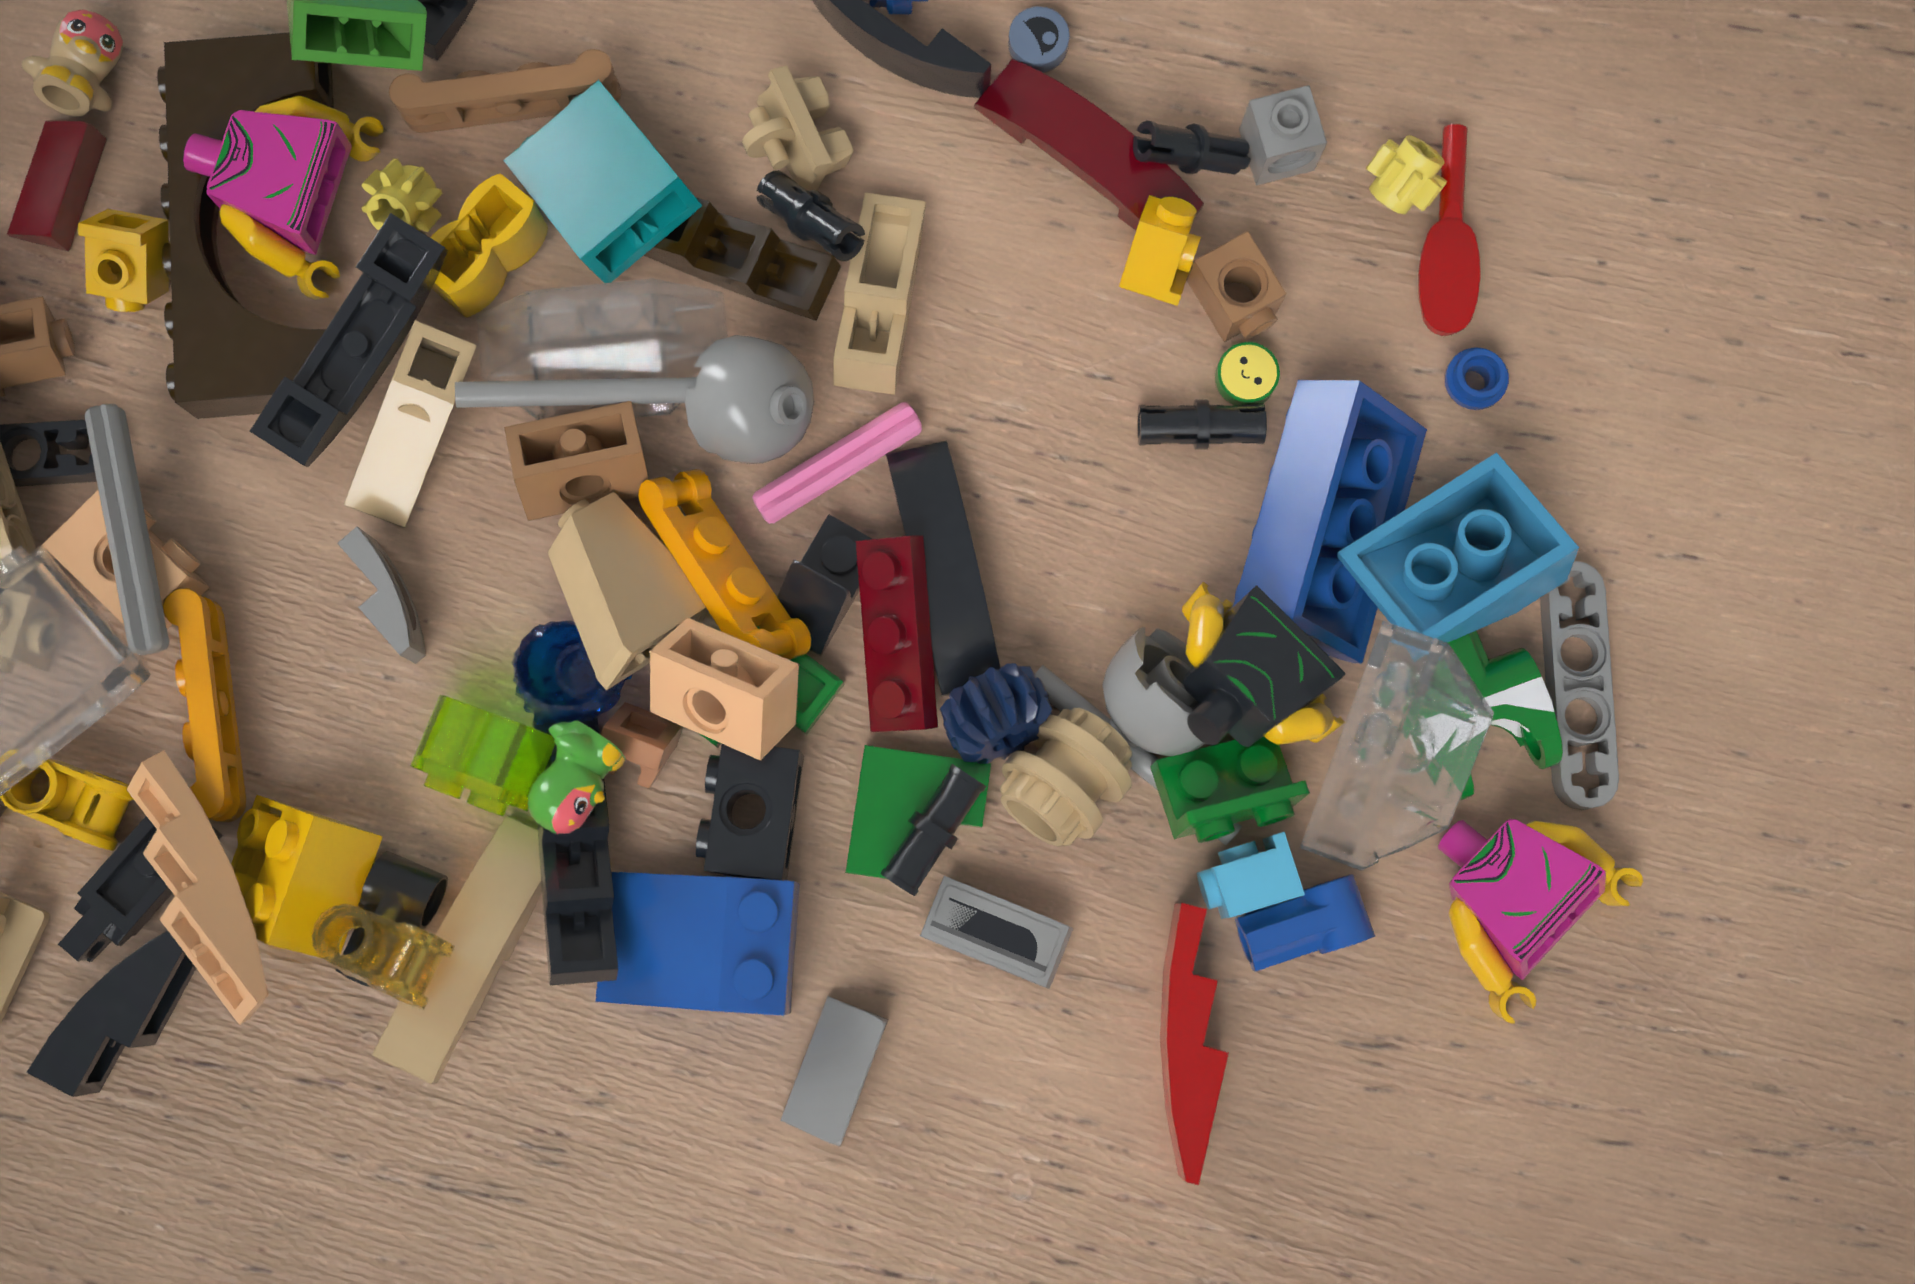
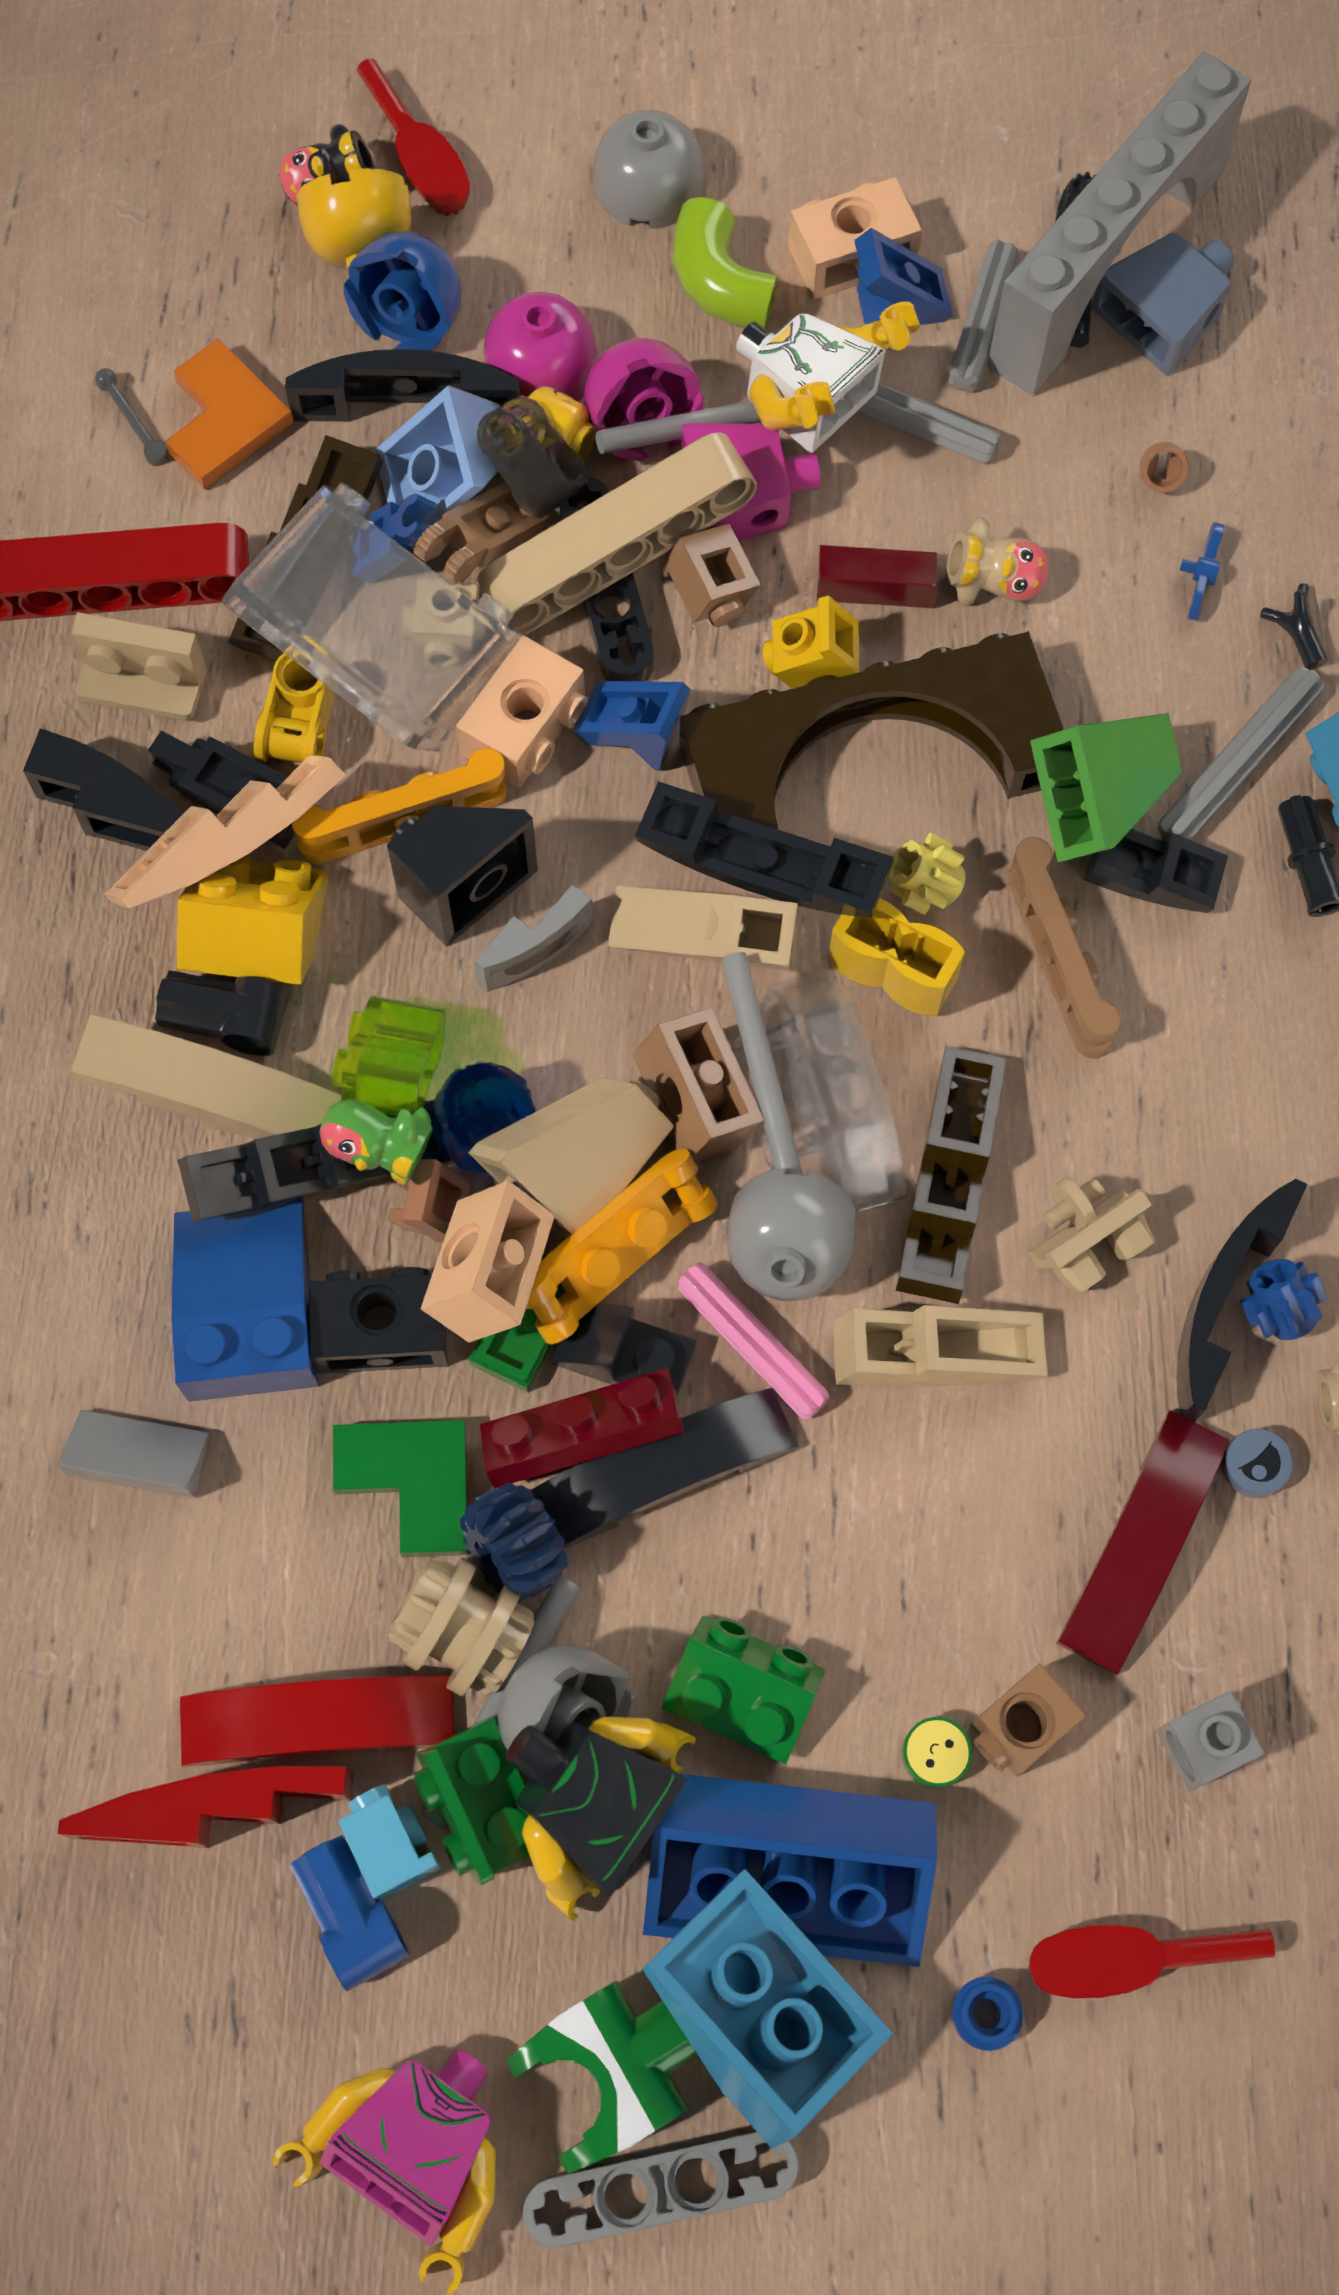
camera: 80 degrees right, 10 degrees down
(126, 529) = (547, 700): light grey axle -> none
(165, 445) = (634, 716): none -> blue slope
(280, 179) = (917, 759): dark pink torso -> none
(288, 653) = (461, 863): none -> black slope
(392, 957) = (182, 1008): clear yellow piece -> none
(602, 183) = (984, 1052): teal brick -> none
(810, 215) = (1000, 1260): black pin -> none
(933, 830) = (385, 1500): black pin -> none
(996, 932) = (294, 1588): light grey slope -> none
(1124, 932) = (315, 1718): none -> red slope
(1161, 250) = (1045, 1628): yellow brick -> none
(1162, 530) = (744, 1687): none -> green bracket
(1191, 148) = (1168, 1643): black axle -> none
(1201, 424) = (869, 1710): black pin -> none
(1399, 752) = (536, 1971): clear wedge -> none
(1406, 174) = (1198, 1890): light yellow gear -> none

